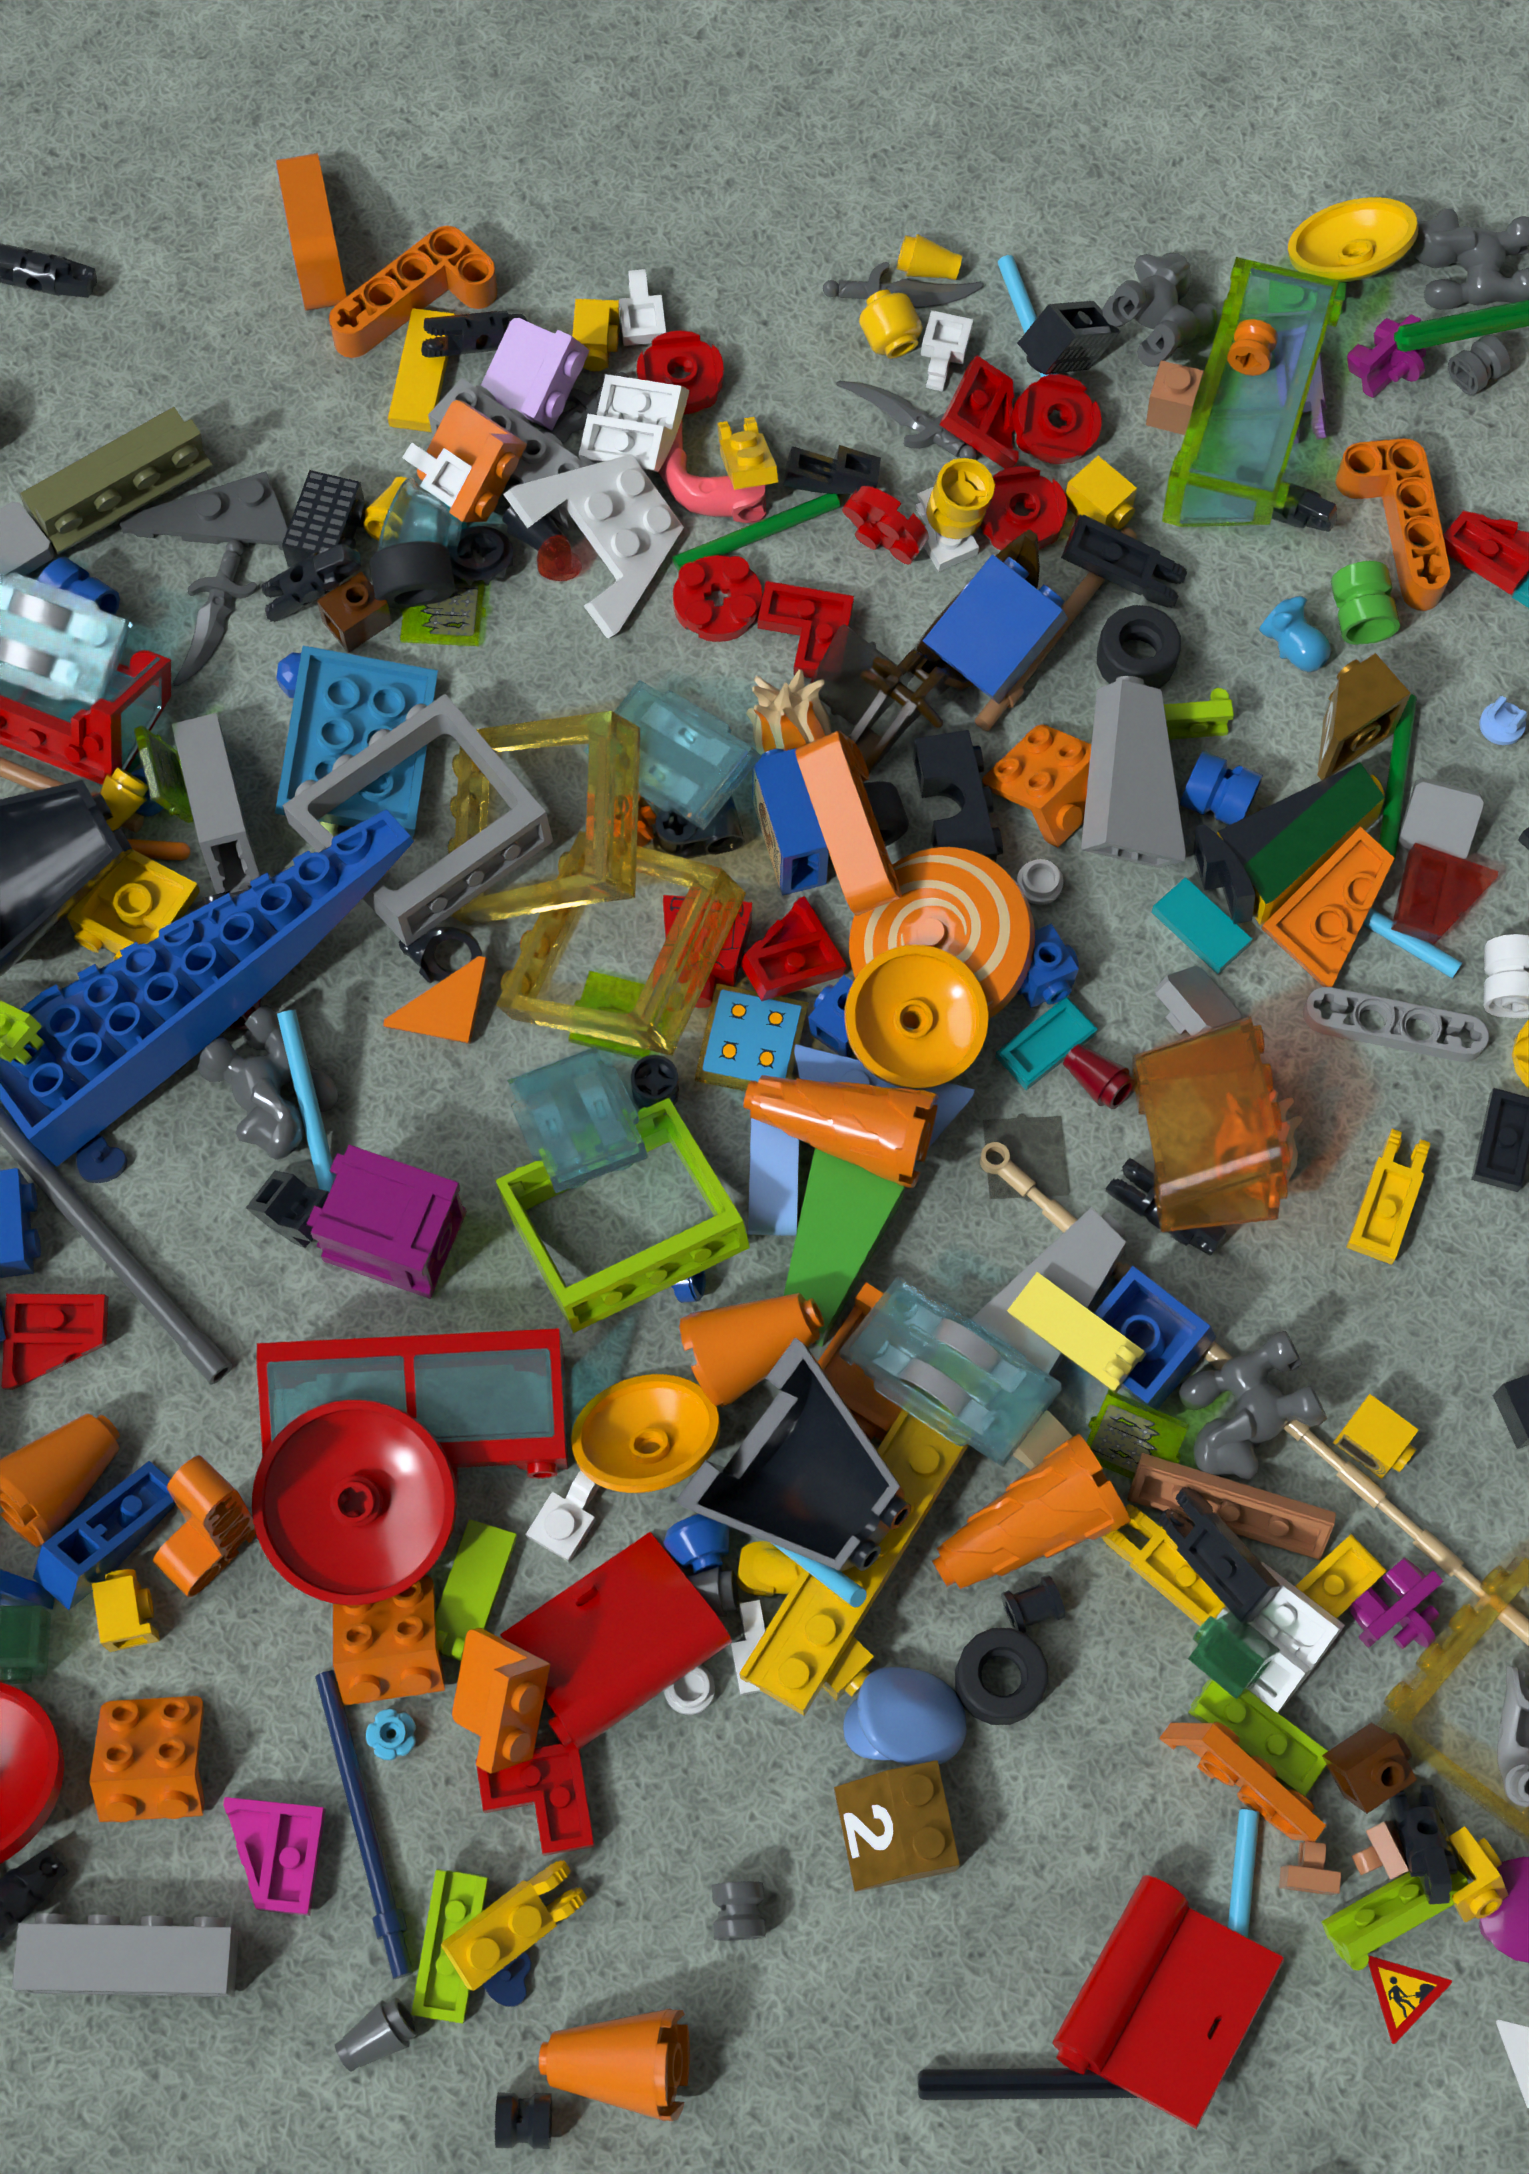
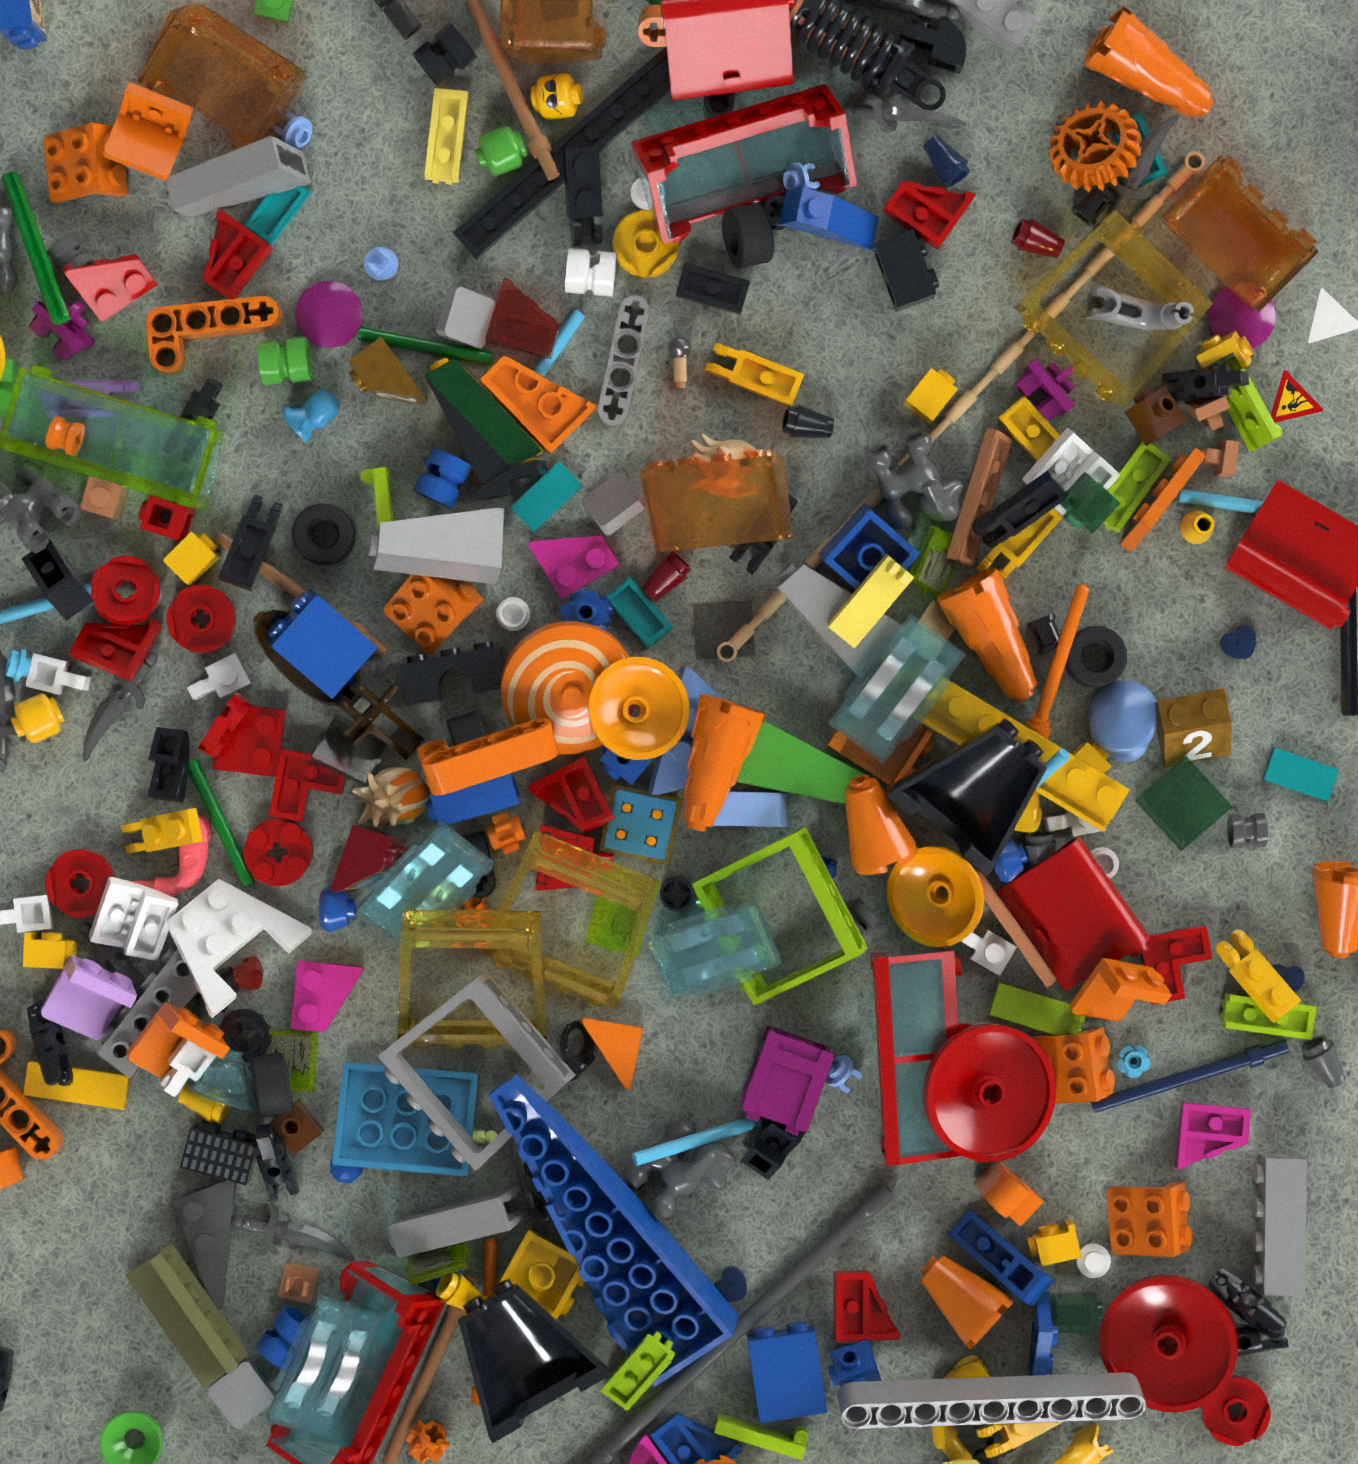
camera: 90 degrees left, 20 degrees up
(93, 1672) = (1094, 1260): none -> white plate
(150, 616) = (298, 1282): none -> nougat tile
(398, 1305) = (839, 1072): none -> light blue plate
(529, 645) = (320, 993): none -> dark pink wing
(595, 1550) = (1015, 932): none -> nougat tile
(615, 1336) = (868, 919): none -> dark grey wheel
(642, 657) = (335, 909): none -> blue cone
(710, 677) = (366, 857): none -> dark red slope
(744, 863) = (506, 832): none -> orange gear
(781, 1812) = (1183, 803): none -> clear green tile
(824, 2001) = (1300, 774): none -> teal tile
(862, 570) = (255, 743): none -> red wing
(900, 1592) = (1040, 722): none -> orange piece
(958, 302) = (17, 665): none -> medium azure plate
(960, 498) = (207, 668): yellow wheel -> none
(1025, 1907) = (1240, 643): none -> dark blue piece
(1115, 960) = (573, 561): none -> dark pink wing
(1150, 467) = (151, 516): none -> red brick
(1192, 1843) = (1190, 530): none -> yellow cone
(1325, 1264) = (806, 423): none -> black cone
(1417, 1097) = (680, 349): none -> piece
(1431, 660) = (329, 314): none -> magenta dish
(1449, 405) = (110, 284): none -> wing

